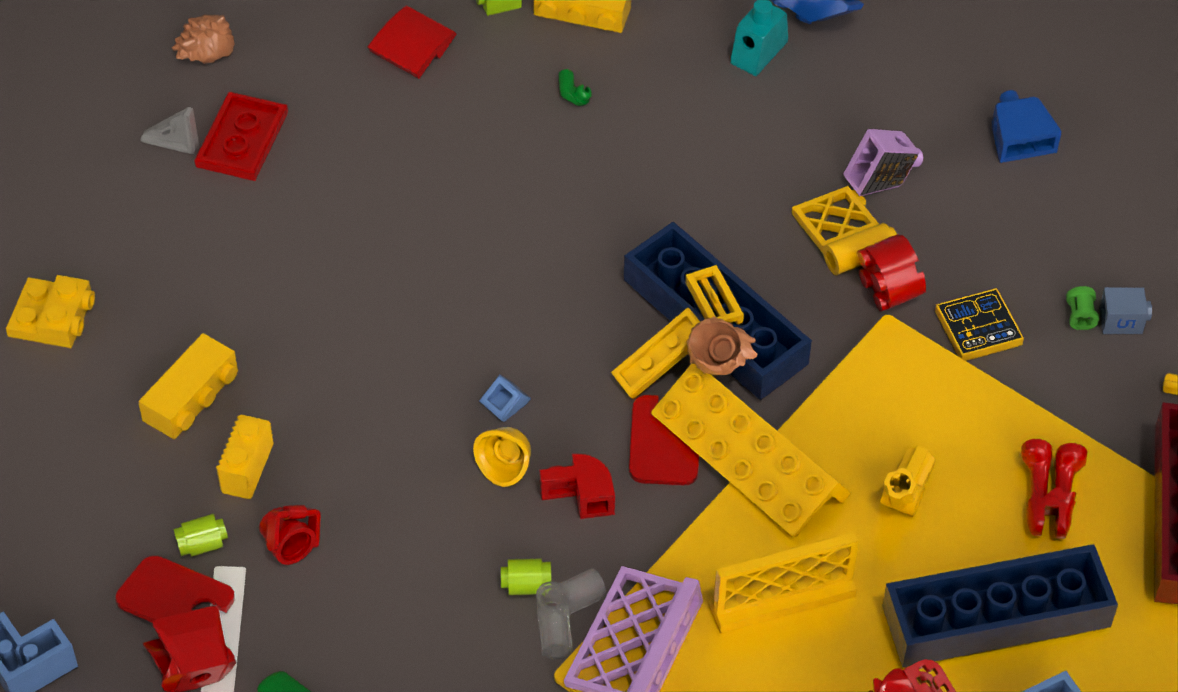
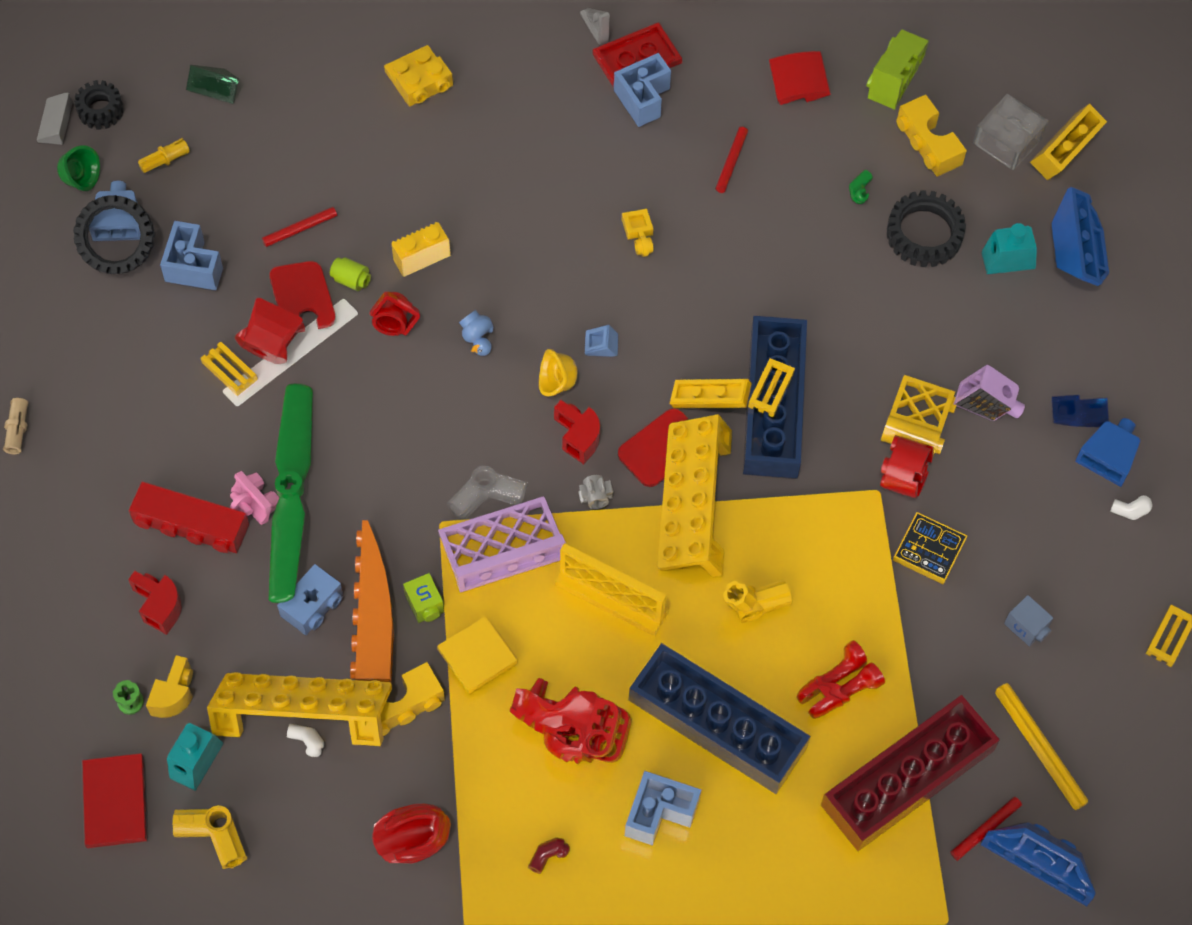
camera: 45 degrees right, 10 degrees up
(93, 539) = (299, 226): none -> red bar
(188, 386) = (438, 182): yellow brick -> none
(285, 155) = (639, 88): none -> medium blue brick
(381, 484) = (474, 328): none -> medium blue animal
(421, 272) = (639, 225): none -> yellow plate
(433, 154) = (731, 160): none -> red bar
(525, 575) = (488, 453): lime brick -> none
(660, 522) = (595, 491): none -> light grey gear
(668, 103) = (935, 205): none -> black tyre
(719, 346) = (732, 417): nougat hair -> none
(960, 120) = (1080, 413): none -> clear blue slope
(1082, 308) = (1005, 595): bright green bush -> none
(1090, 160) = (1134, 509): none -> white arm

